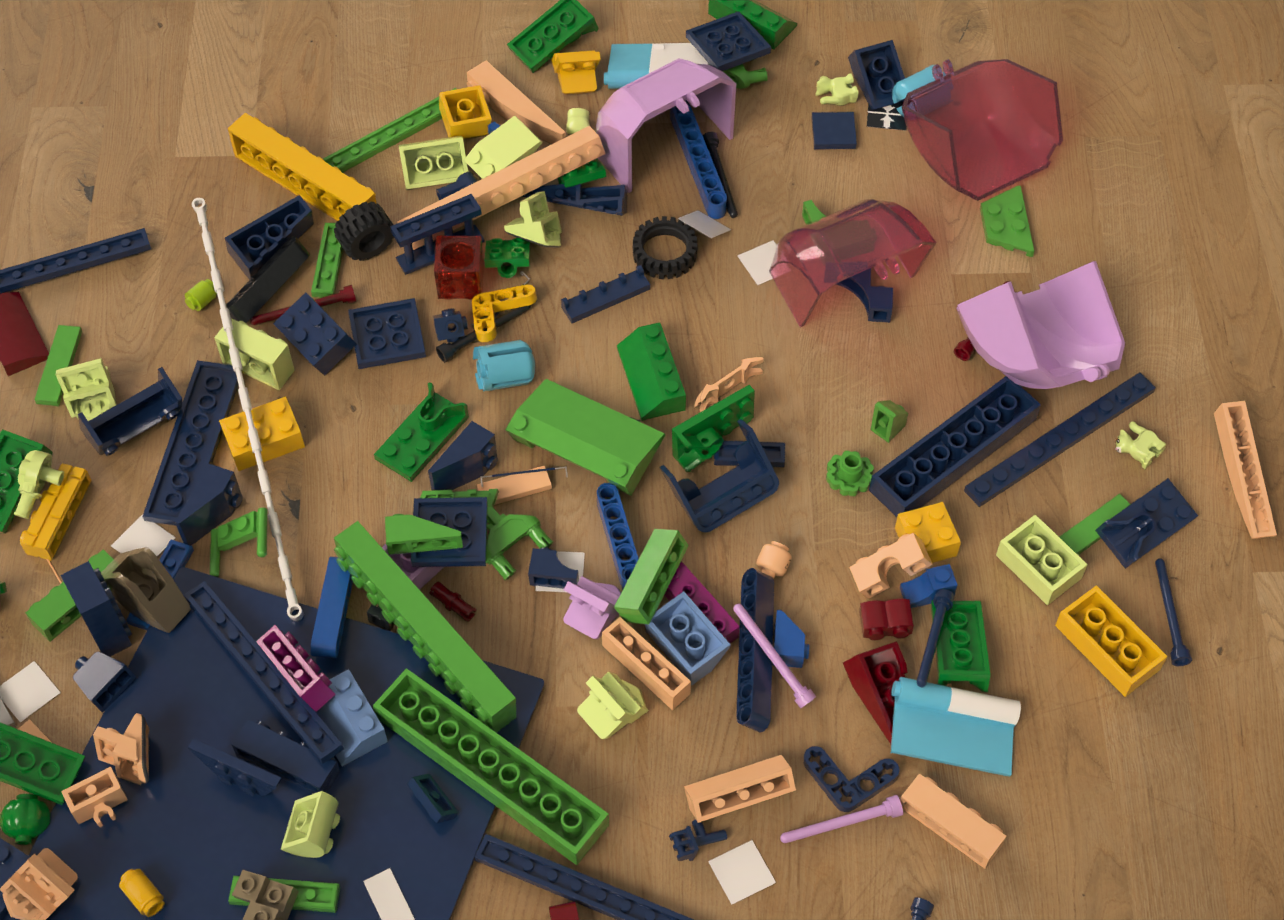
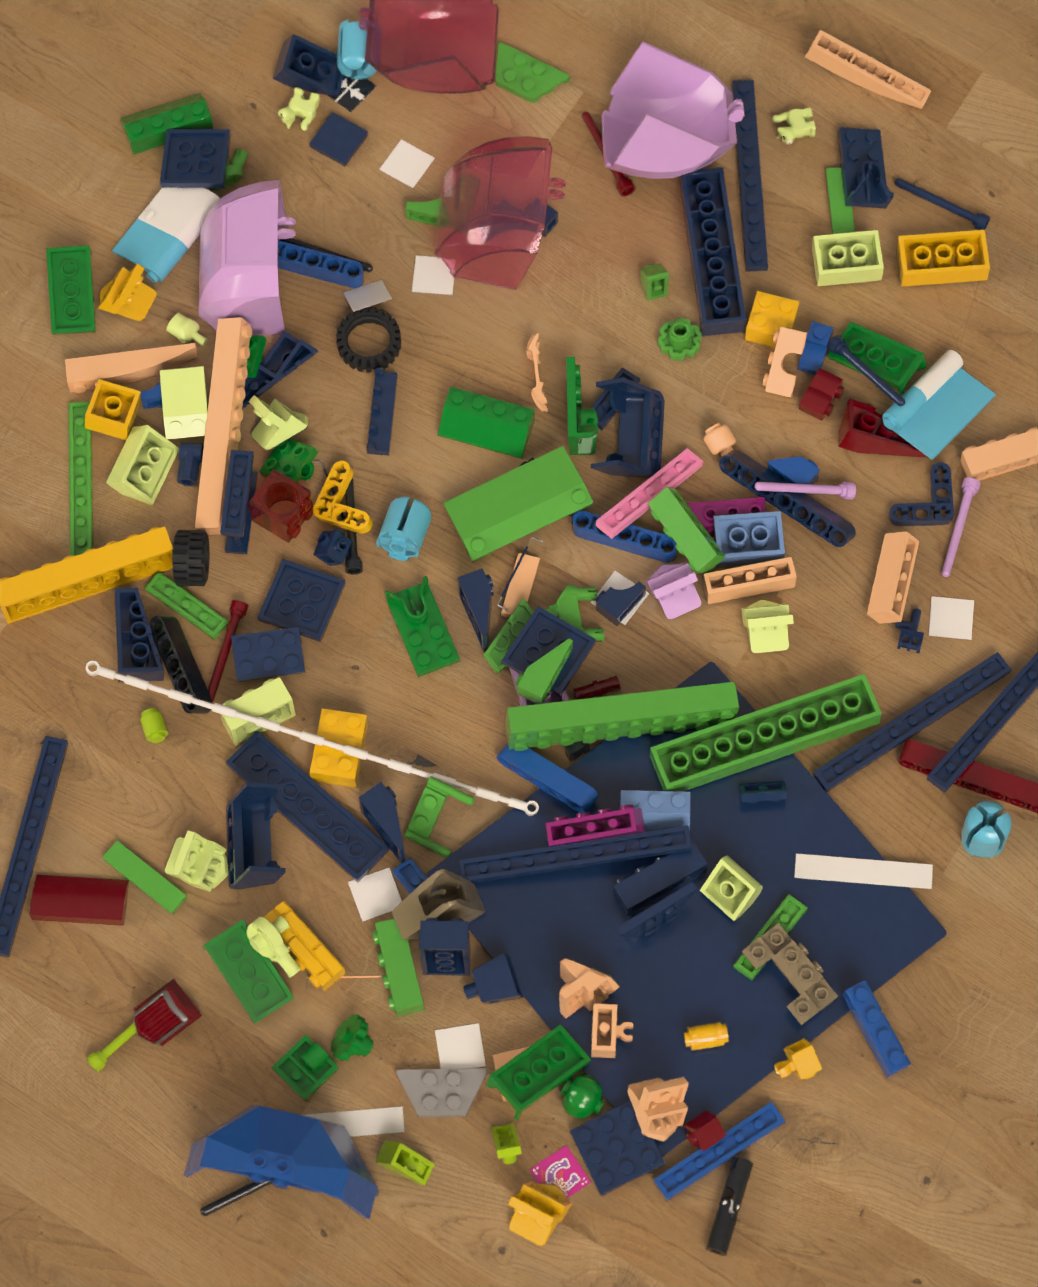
camera: 55 degrees left, 10 degrees up
(697, 536) = (637, 501): none -> bright pink plate
(852, 187) = (407, 163): none -> white sticker

